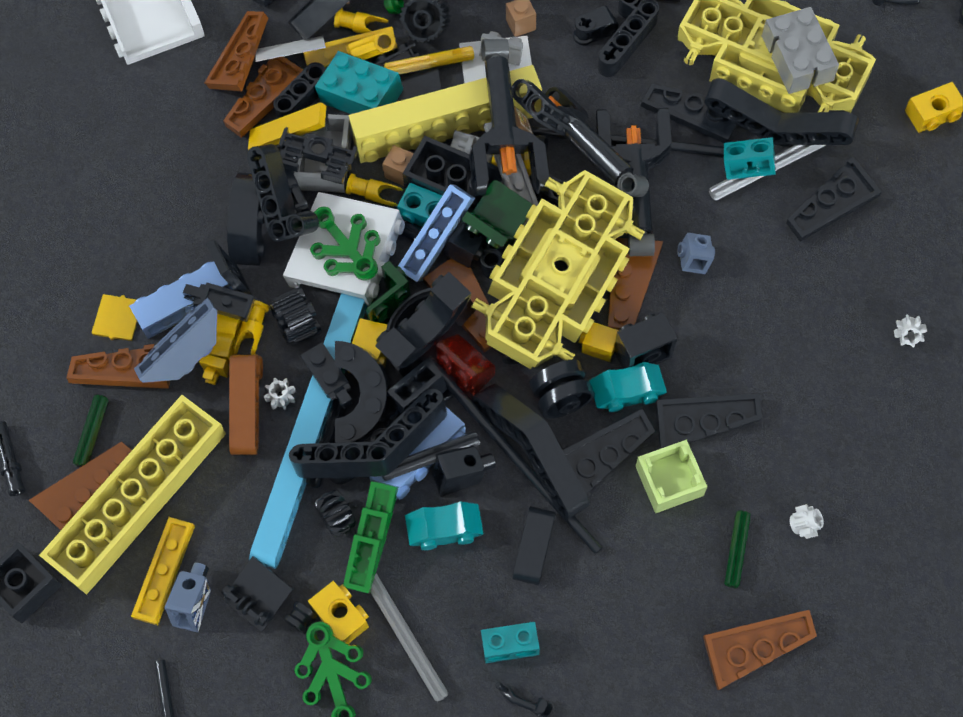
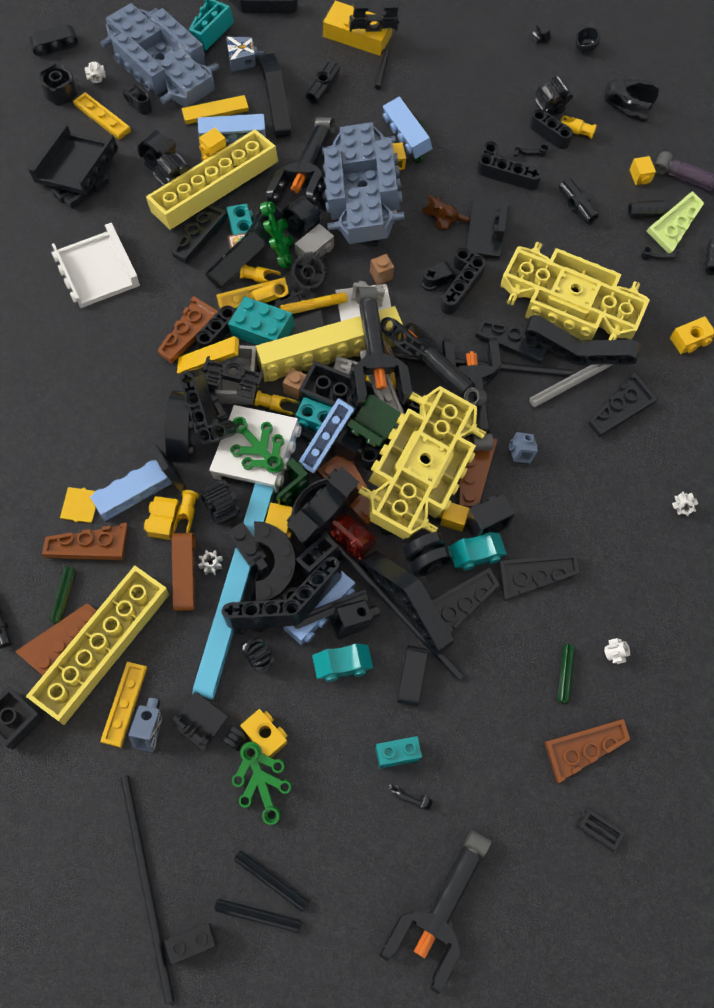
camera: 10 degrees left, 0 degrees up
(182, 346) = (132, 527): sand blue wedge -> none
(214, 367) = (158, 543): yellow tile -> none
(226, 301) = (162, 490): black hinge -> none
(236, 59) = (166, 302): dark orange wing -> none
(290, 48) = (206, 294): white sticker -> none
(371, 537) = (287, 673): green slope -> none
(408, 640) = (313, 745): light grey axle -> none
(671, 476) = (513, 619): yellowish green container -> none
(749, 158) = (559, 375): teal brick -> none
(798, 49) = (594, 293): light grey piece -> none

